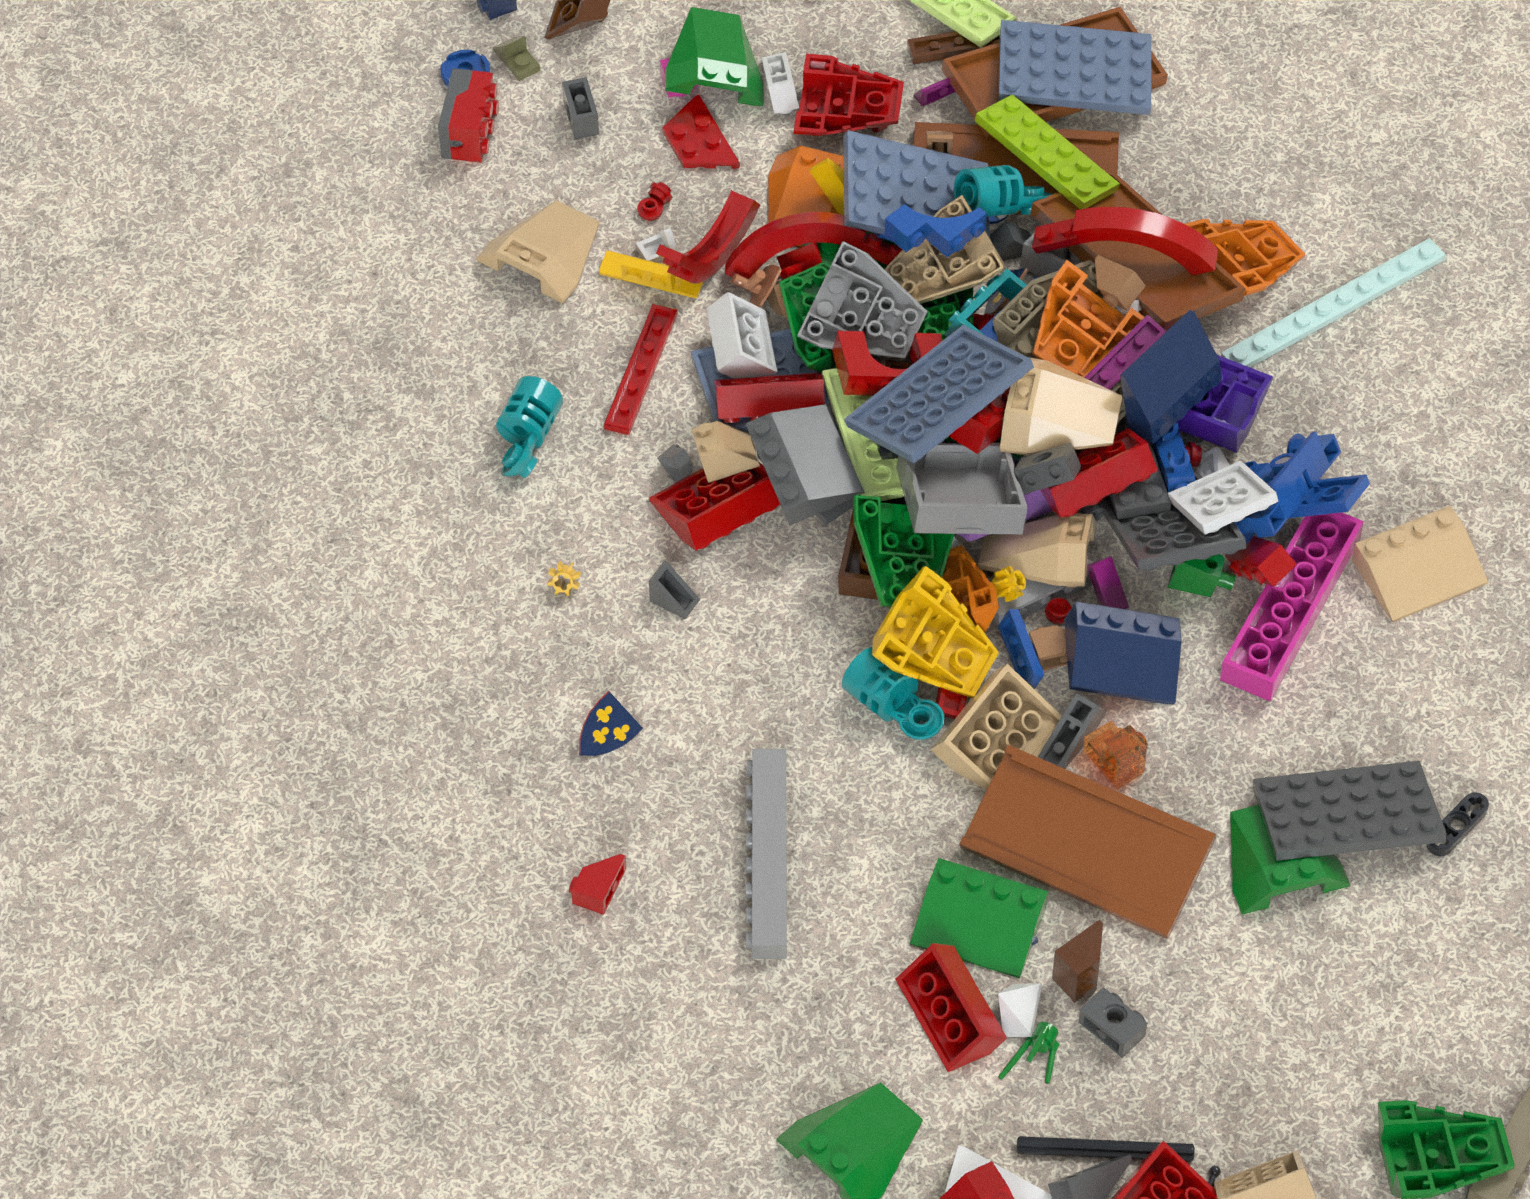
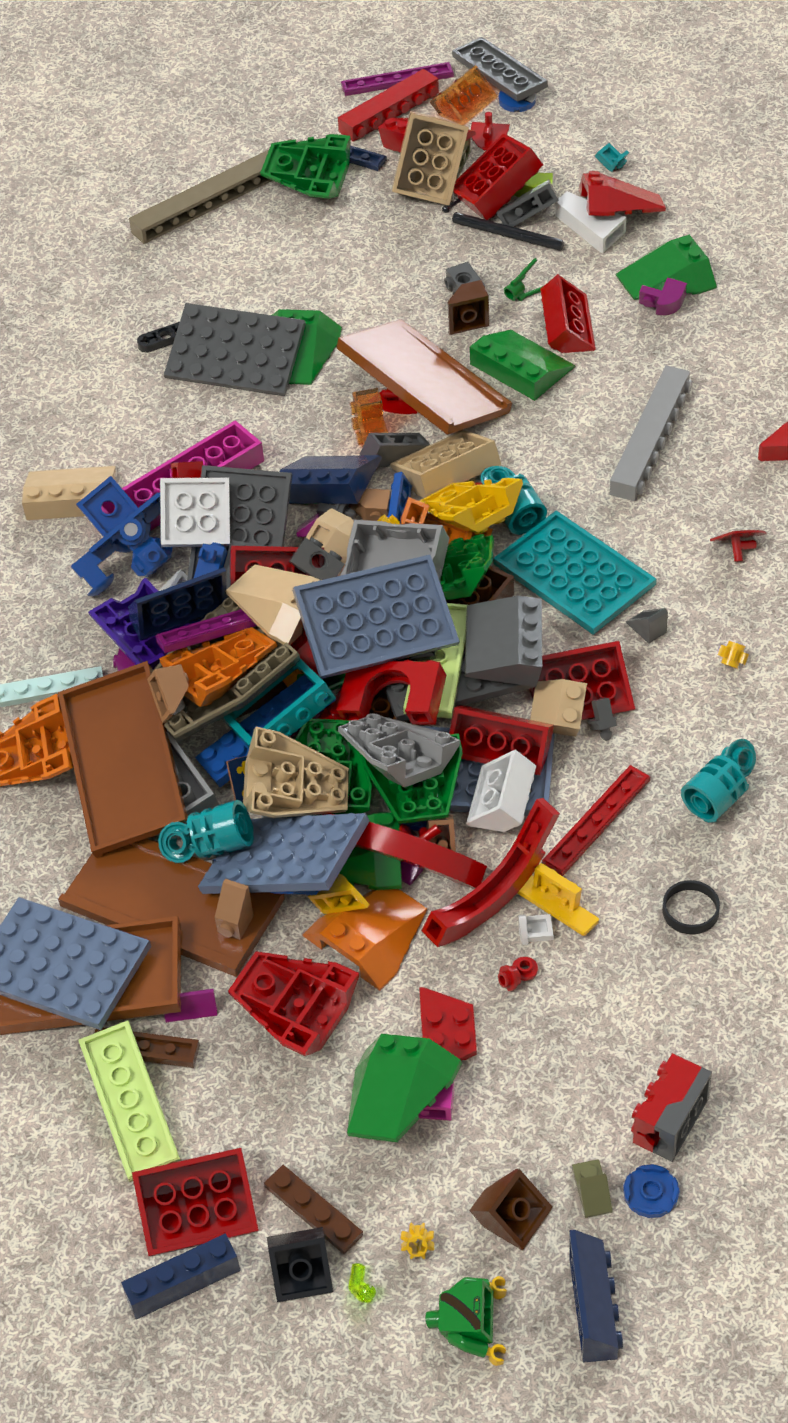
camera: 155 degrees left, 5 degrees down
(512, 287) = (696, 886): none -> black tyre
(548, 247) = (644, 955): tan wedge -> none
(580, 108) = (551, 1085): dark grey brick -> none
(759, 283) = (460, 837): nougat shield -> none
(780, 83) = (338, 1061): white slope -> none
(780, 635) = (575, 572): none -> teal plate
(831, 1071) = (666, 300): none -> magenta brick
(948, 235) = (283, 778): blue arch -> none
(1019, 1009) = (519, 310): white slope -> none
(1047, 152) = (142, 871): lime plate -> none
(1130, 226) = (141, 731): red arch -> none

